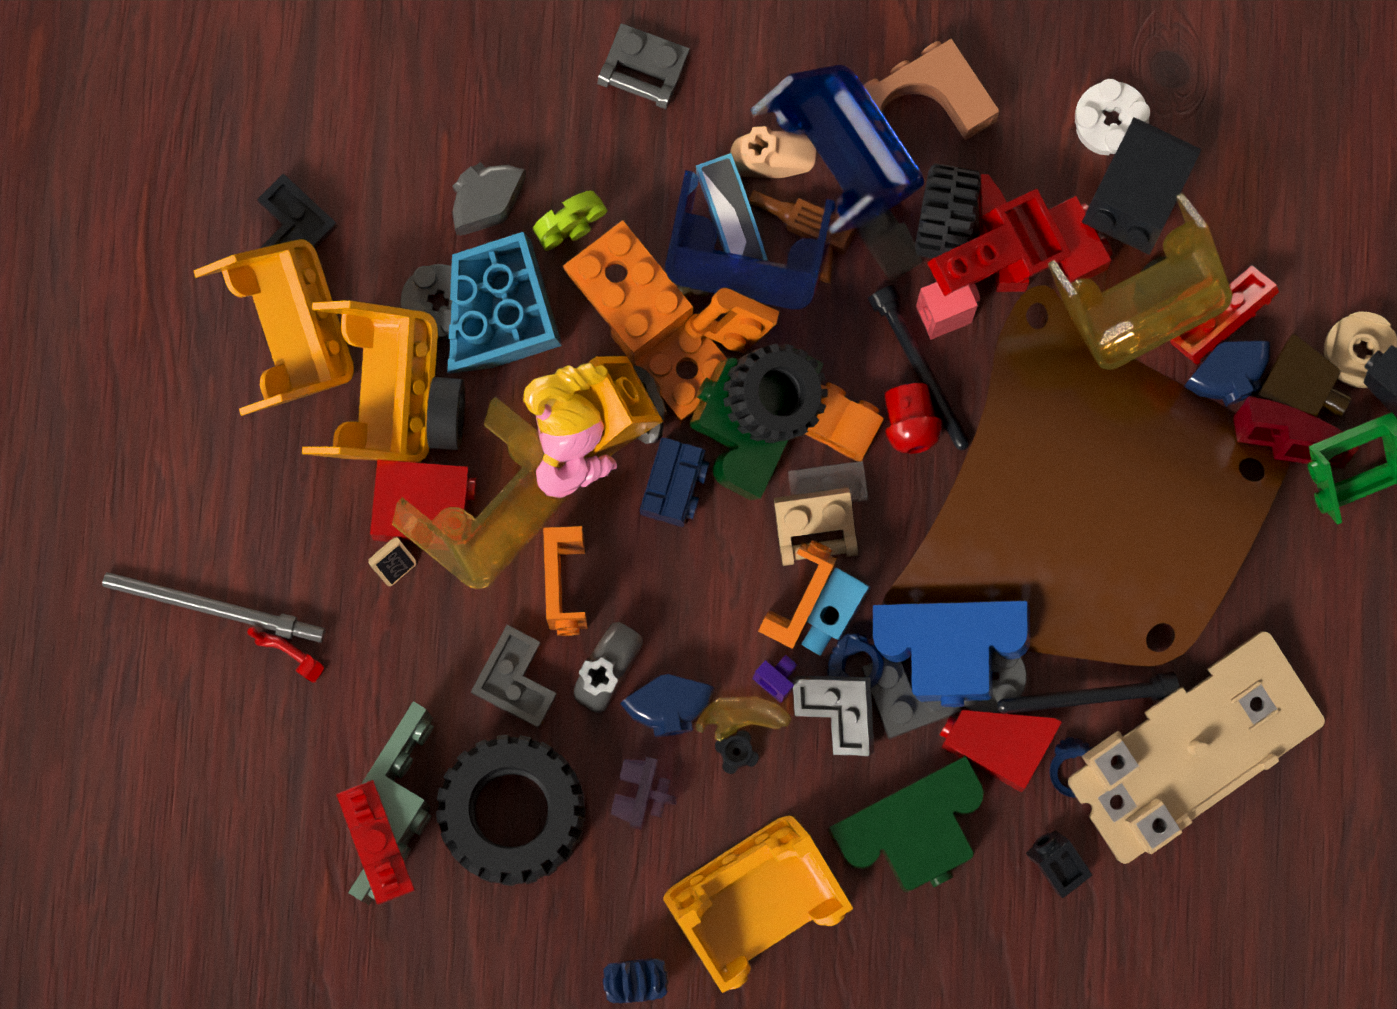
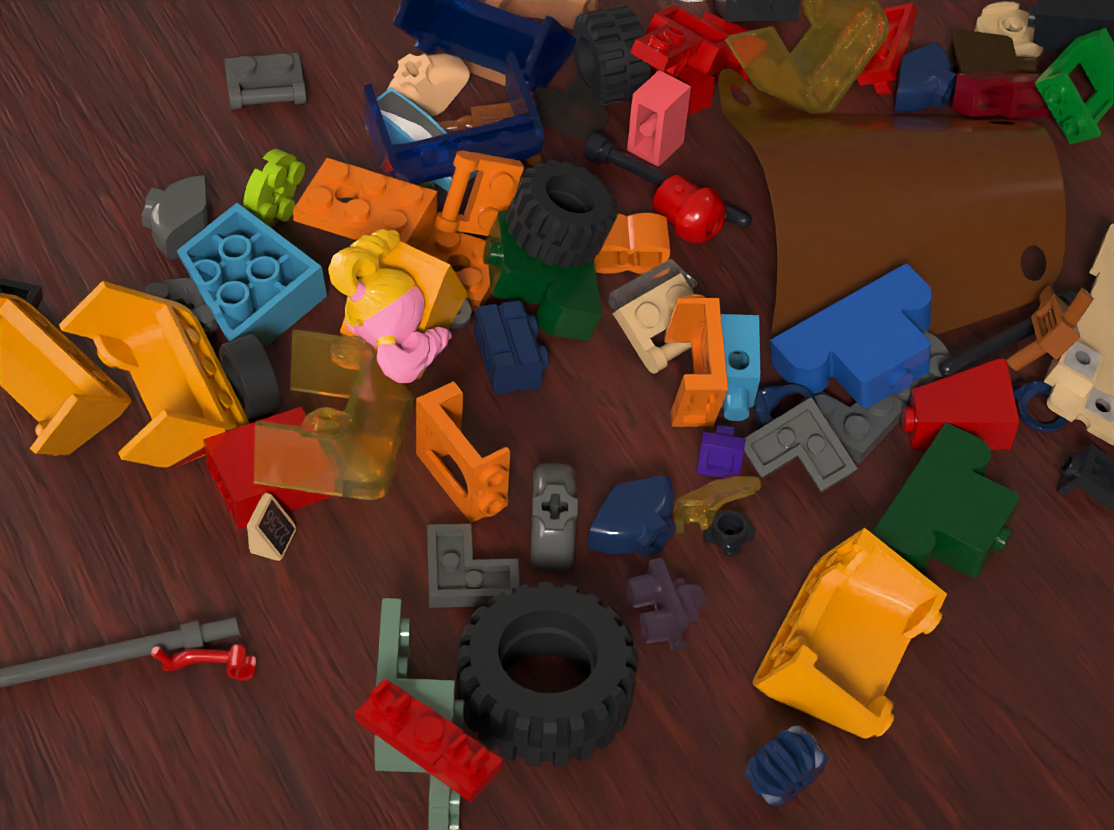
camera: 35 degrees left, 30 degrees down
(1117, 718) = (1054, 327): none -> dark orange piece

